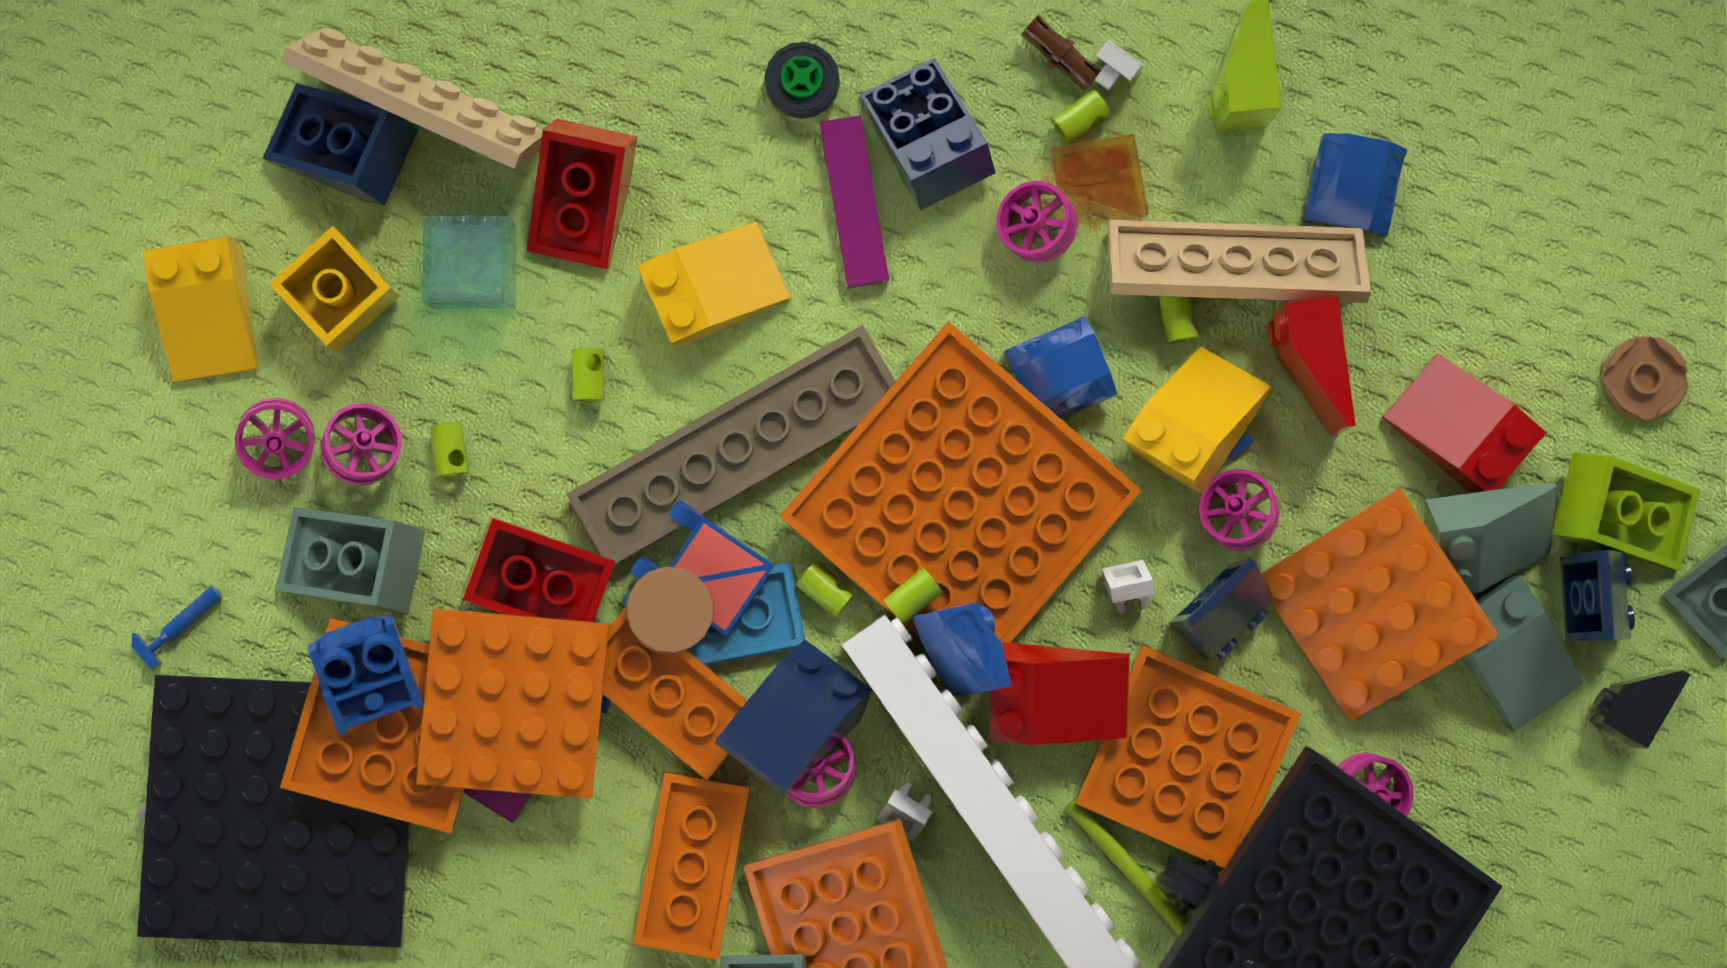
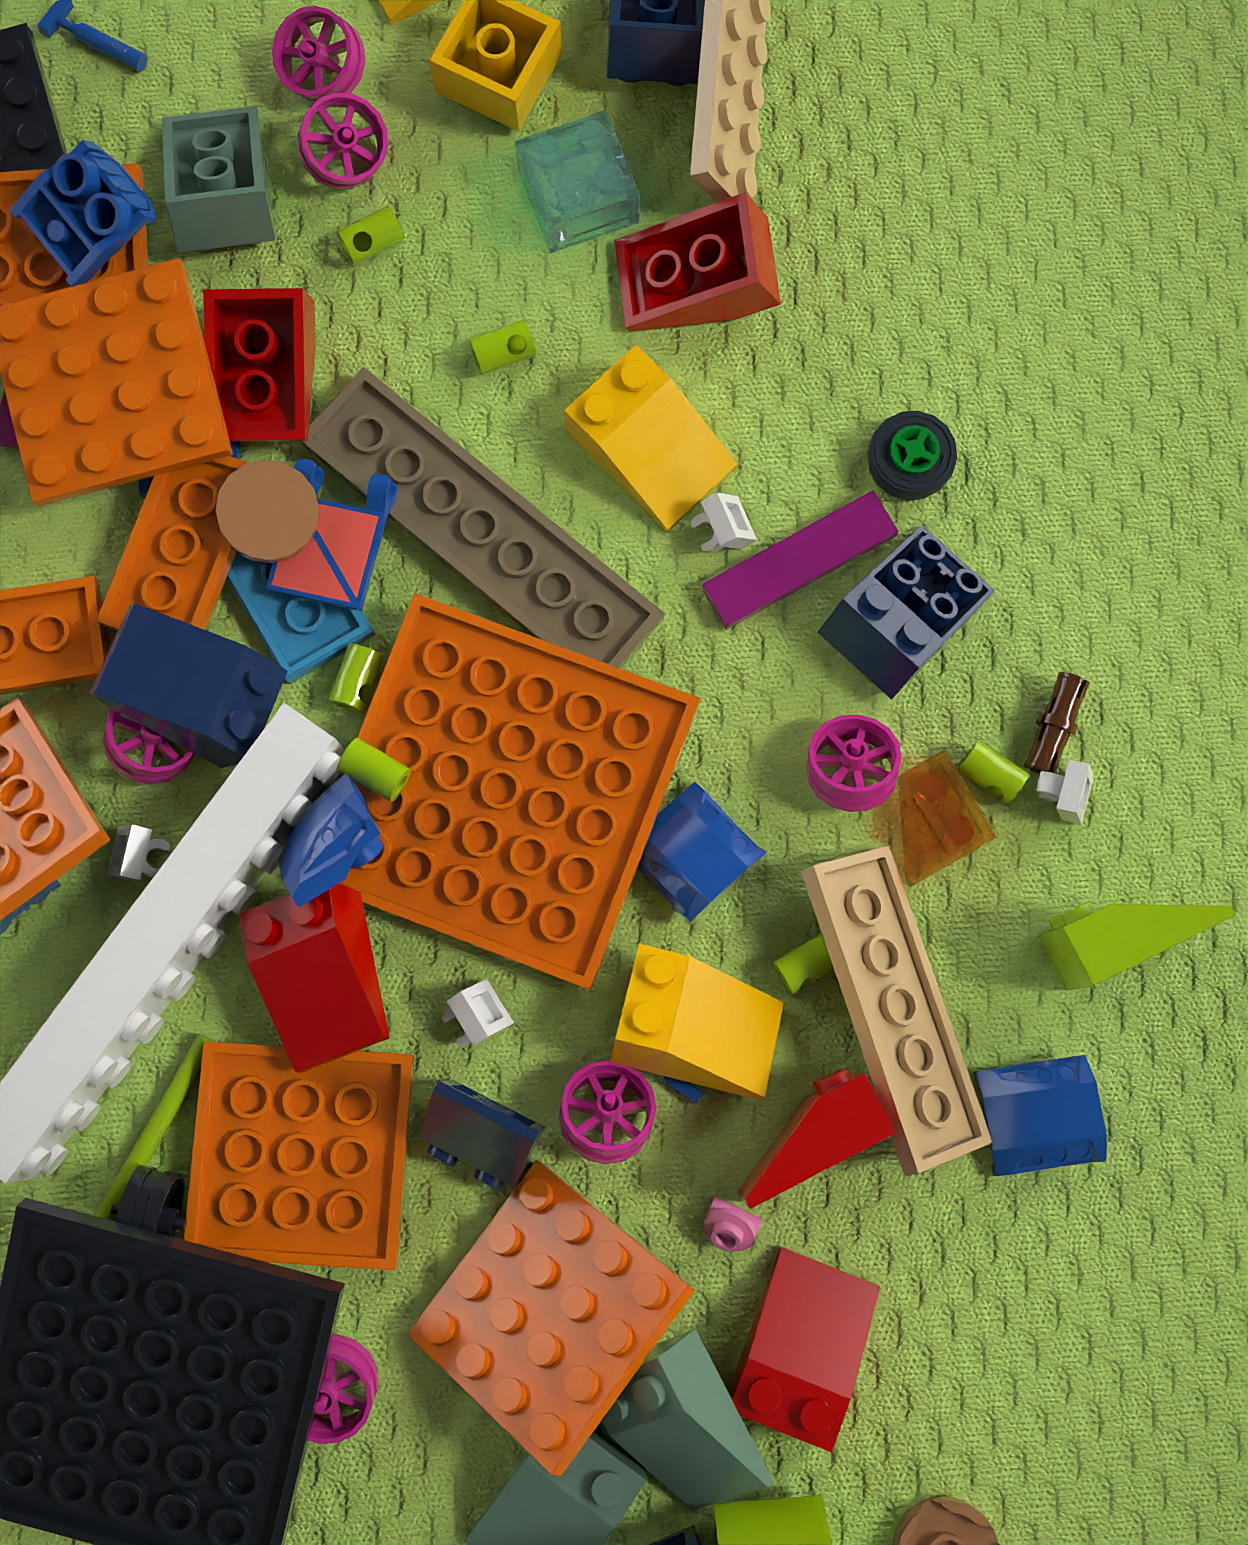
camera: 70 degrees right, 5 degrees down
(803, 247) = (727, 521): none -> white tile
(1354, 449) = (730, 1226): none -> bright pink plate

